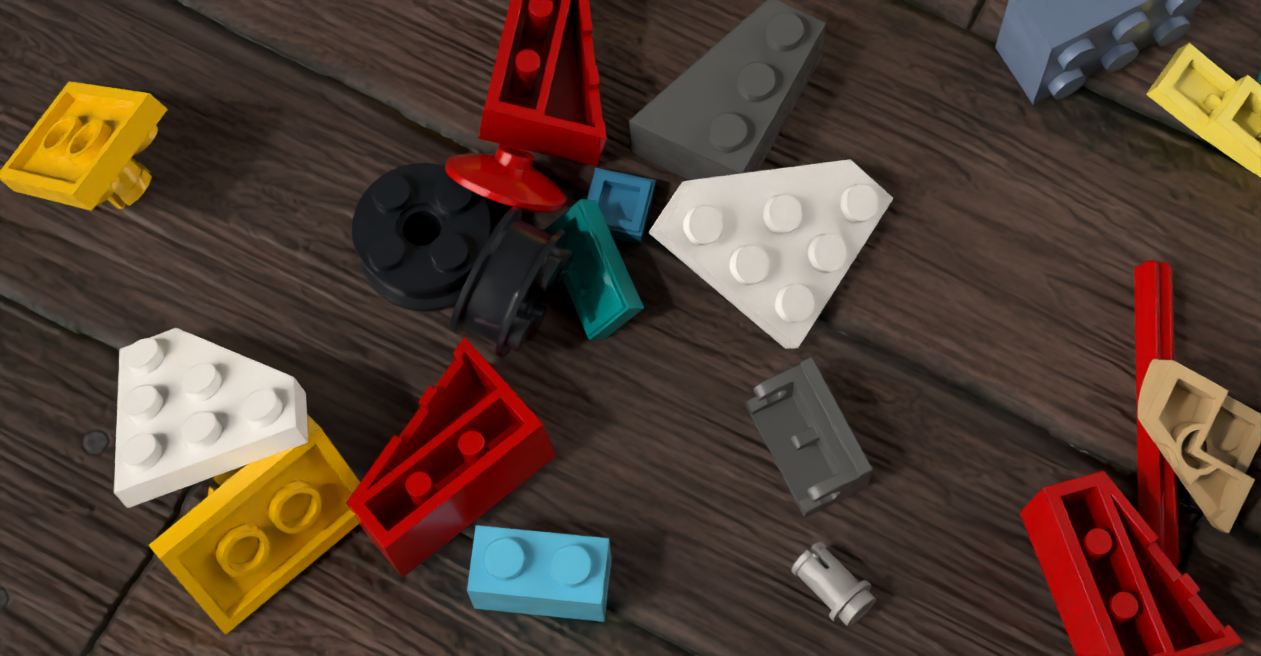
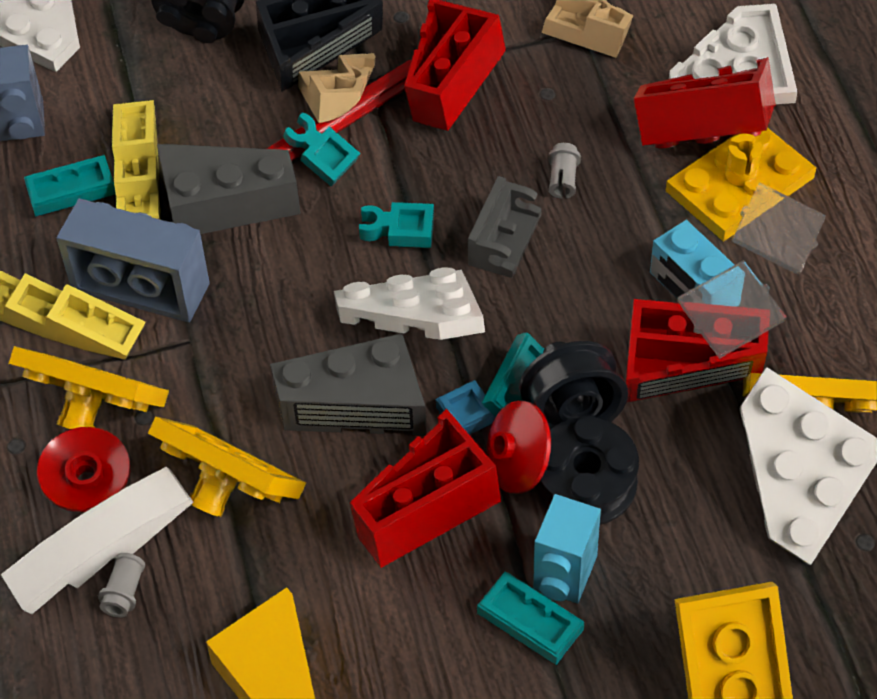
camera: 135 degrees left, 15 degrees down
(333, 56) = (530, 617): none -> teal plate
(346, 114) = (566, 549): none -> medium azure brick
(424, 507) = (731, 309): none -> clear piece
(918, 342) = (405, 225): none -> teal plate
(1101, 339) = (325, 153): none -> teal plate
(1148, 186) = (227, 185): none -> dark grey wedge

